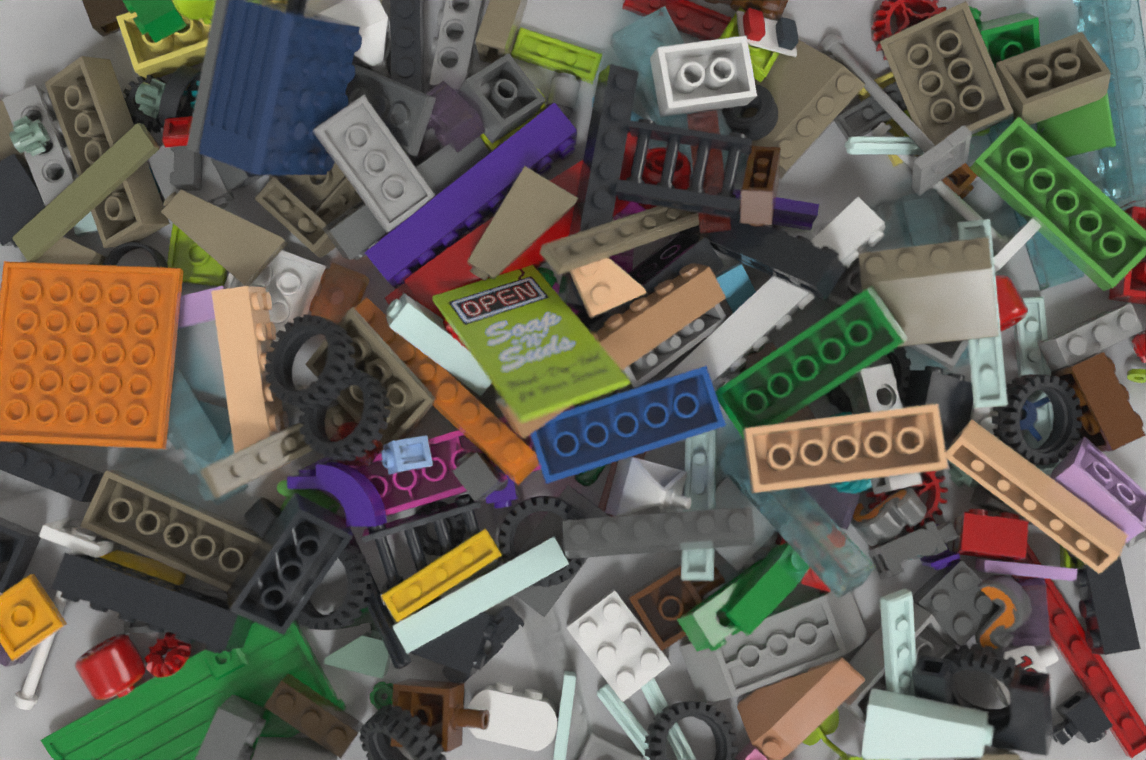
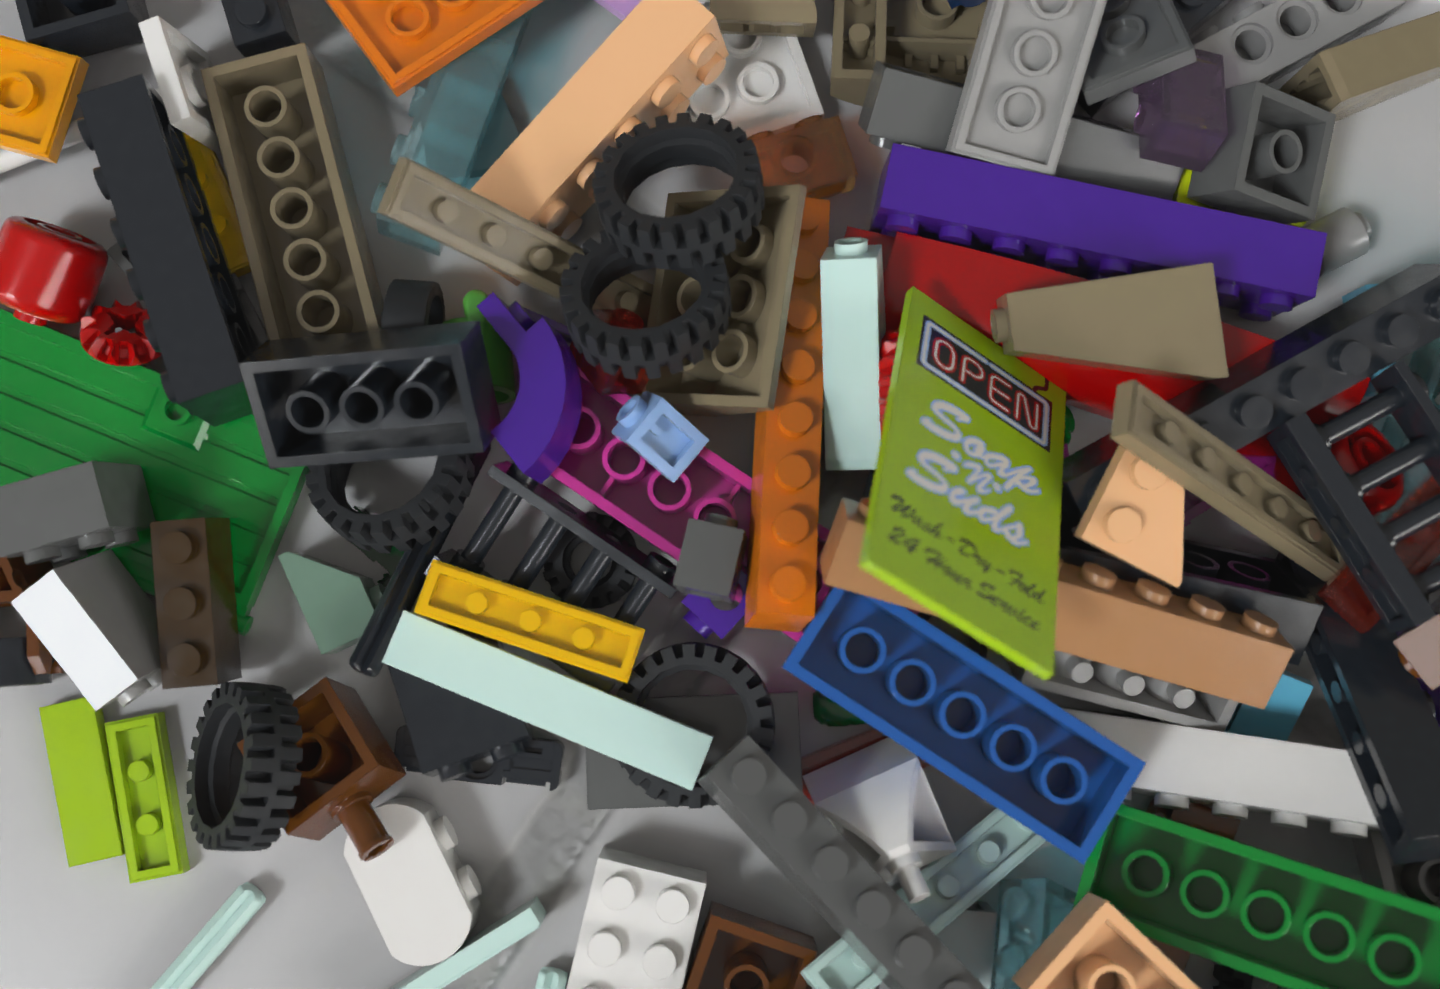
camera: 45 degrees right, 0 degrees up
(376, 695) = (293, 663): green plate -> none
(556, 55) = (1375, 190): lime tile -> none

